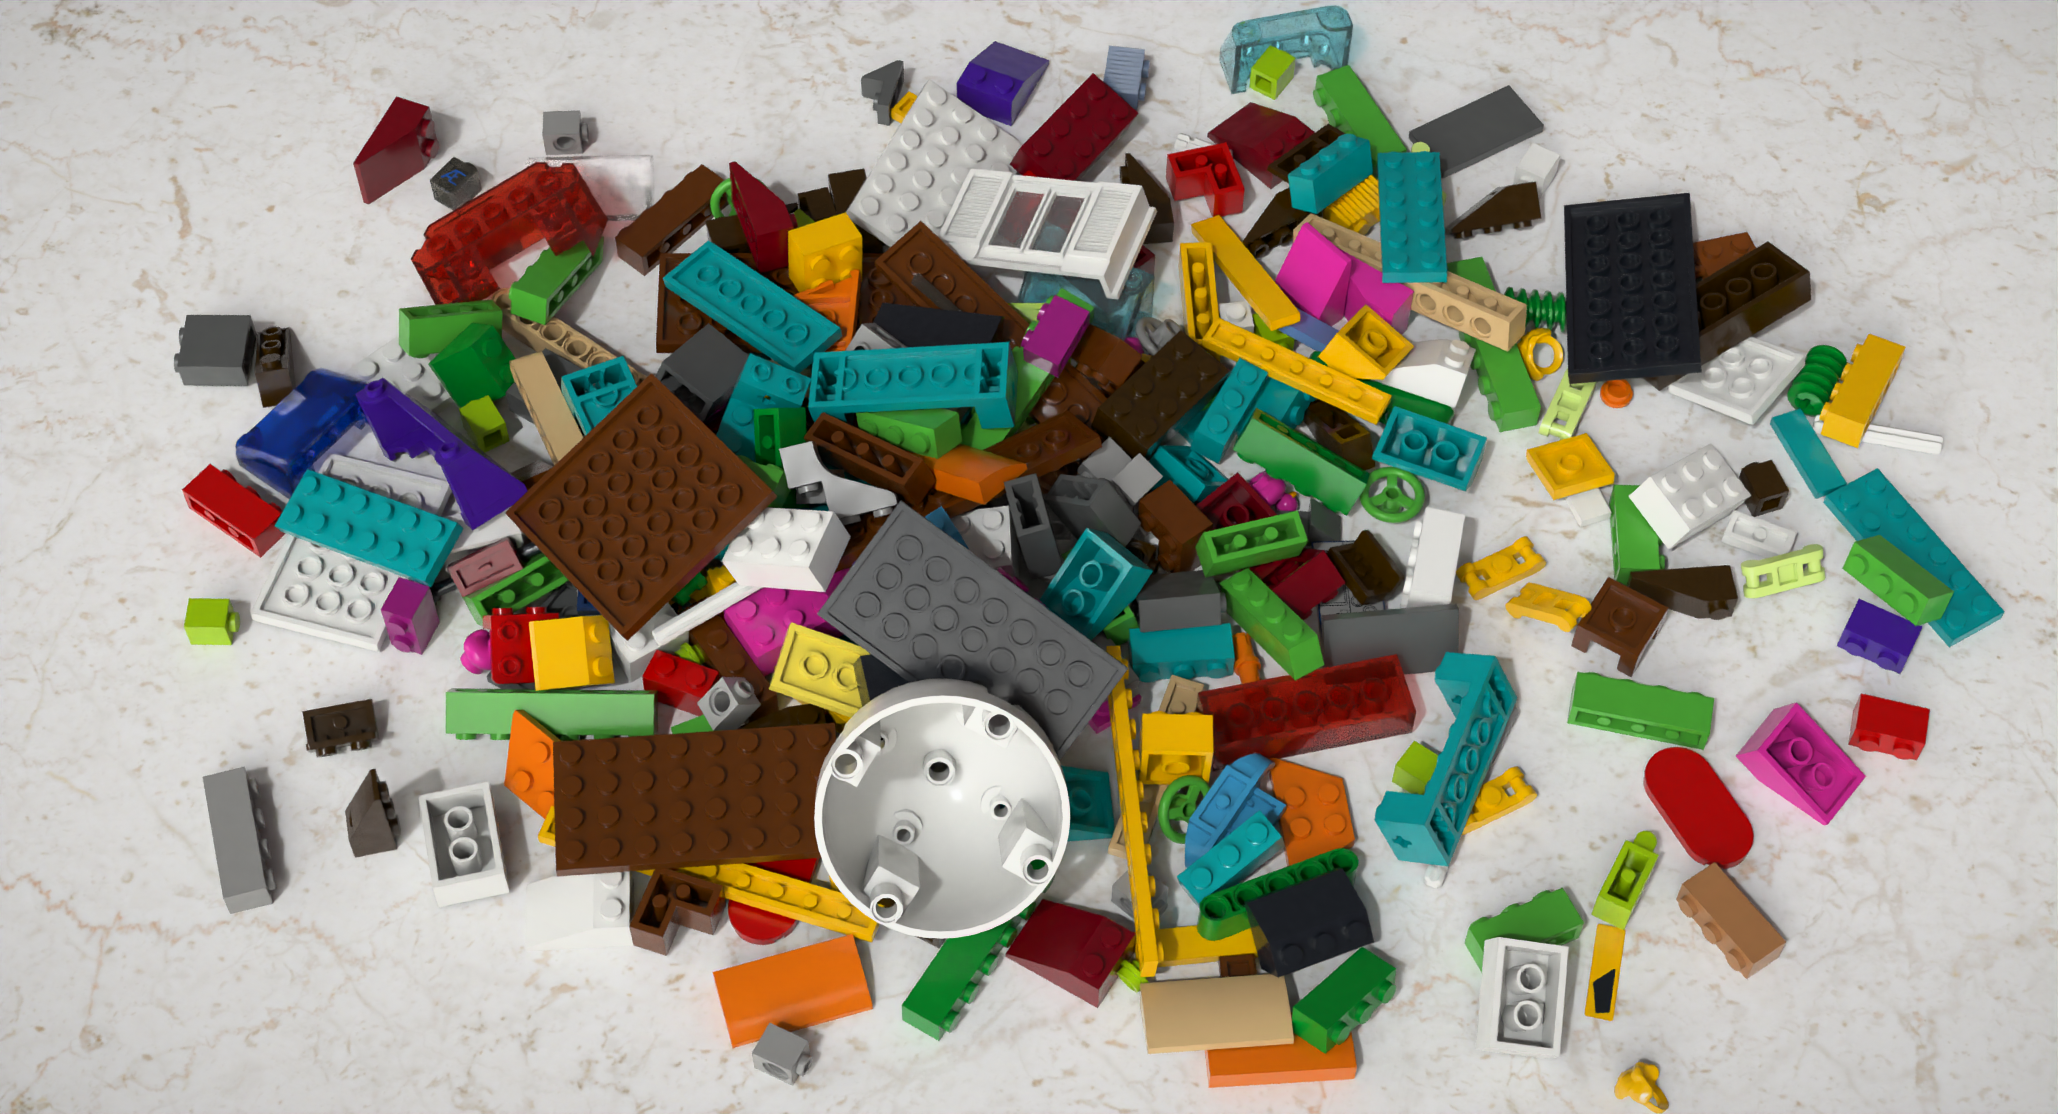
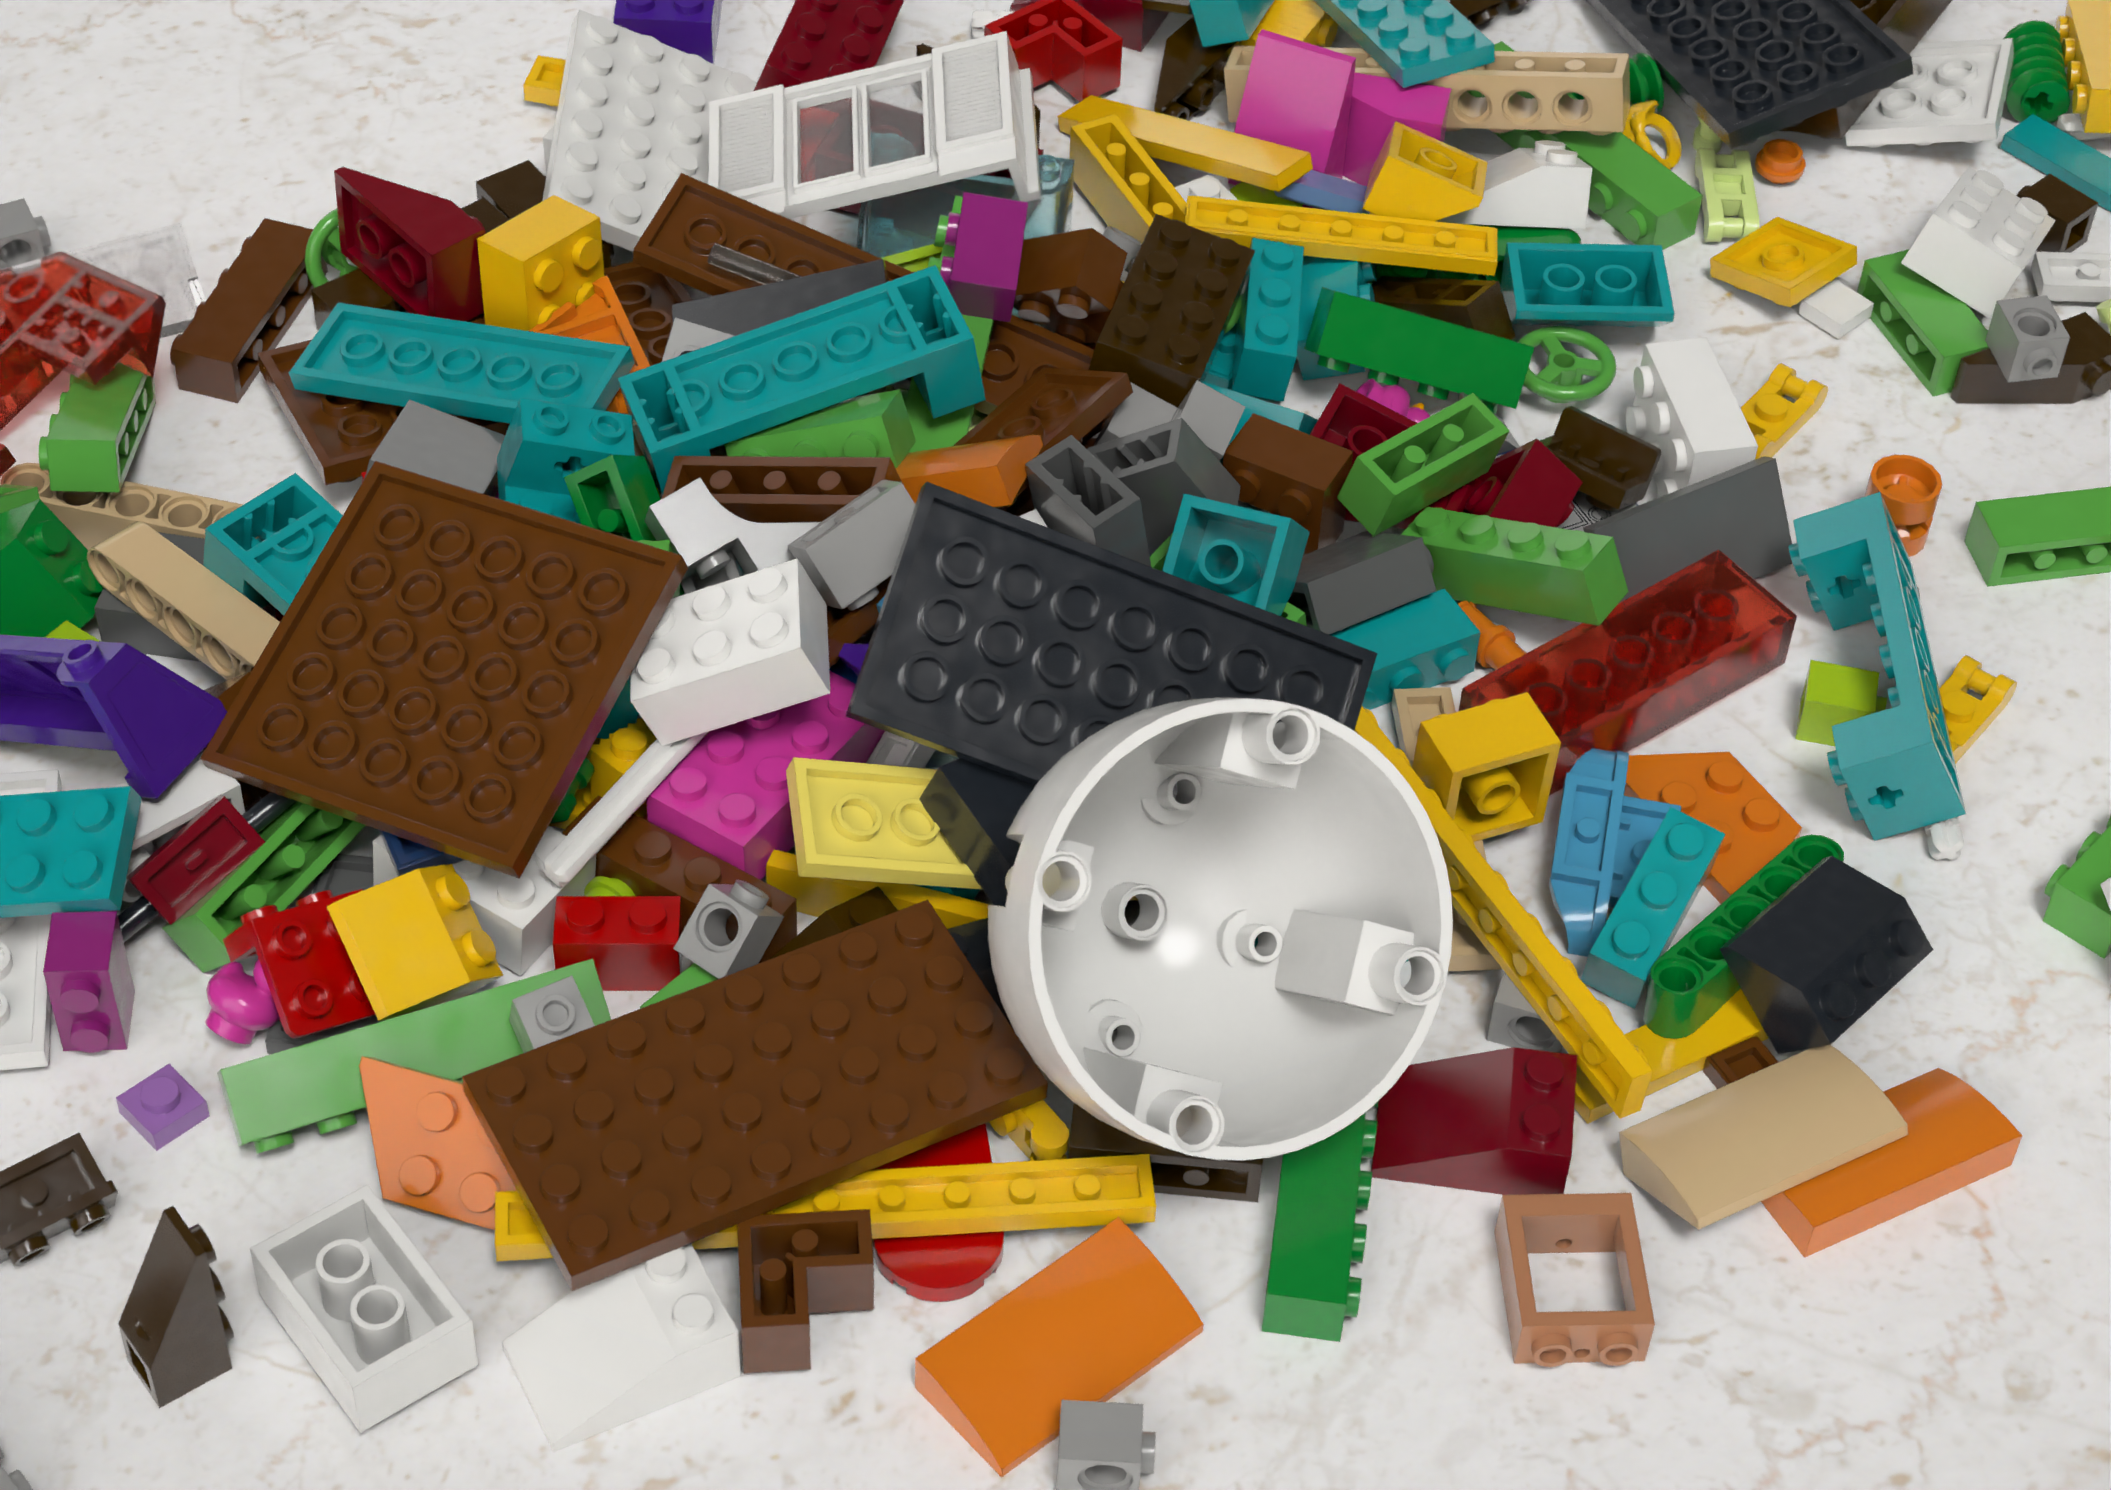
camera: 25 degrees left, 10 degrees down
(423, 694) = (162, 1107): none -> medium lavender plate
(614, 722) = (549, 1014): none -> light grey brick
(873, 505) = (856, 545): none -> light grey brick
(884, 87) = (494, 61): dark grey slope -> none
(1082, 1023) = (1573, 1226): none -> nougat window
(1130, 975) = (1597, 1128): lime plate -> none
(1178, 805) = (1524, 862): bright green piece -> none
(1344, 1000) = (1946, 1045): green brick -> none
(1534, 657) = (1911, 495): none -> orange wheel
(1549, 606) = (1878, 433): yellow plate -> none
(1622, 623) = (1989, 424): reddish brown panel -> none
(1675, 565) = (2027, 338): none -> light grey brick

